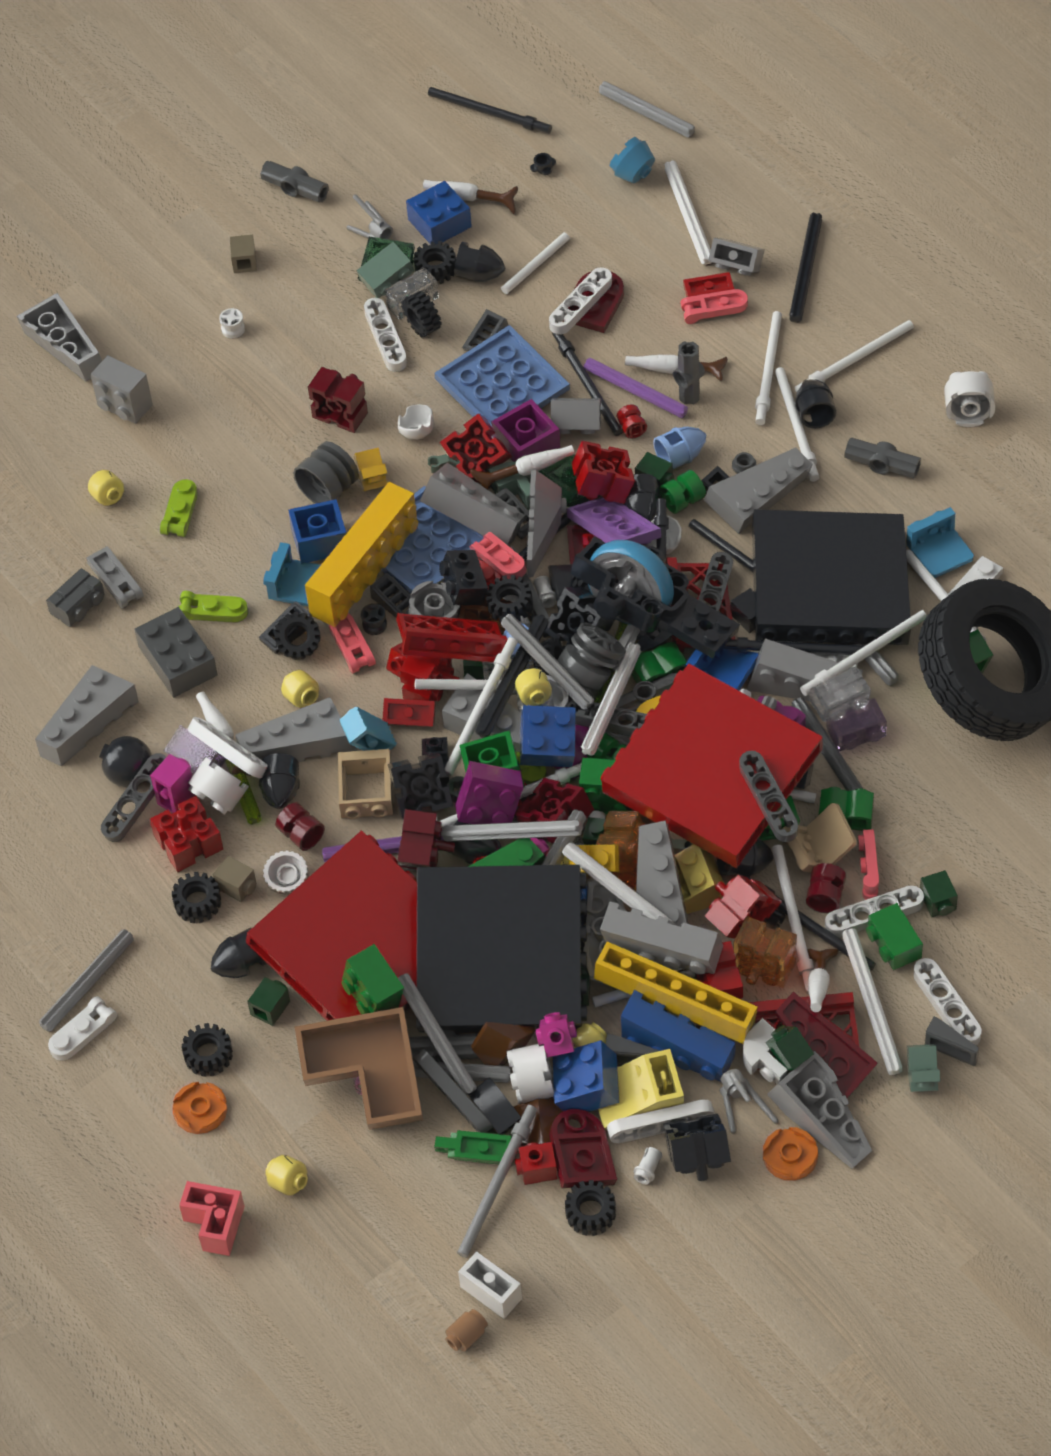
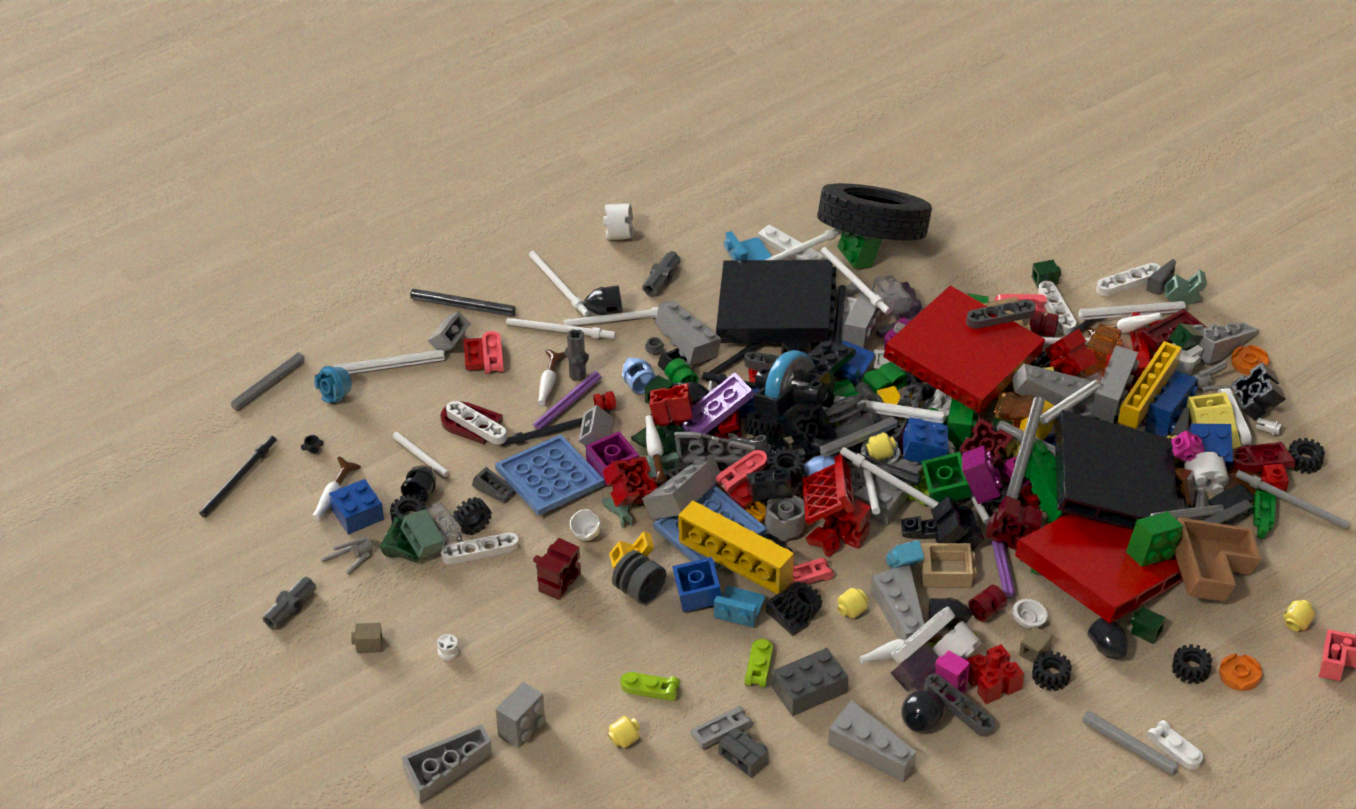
camera: 90 degrees left, 10 degrees down
(409, 712) = (878, 538): red plate -> none
(545, 577) = (760, 442): none -> dark grey brick
(894, 936) = (1083, 293): green brick -> none

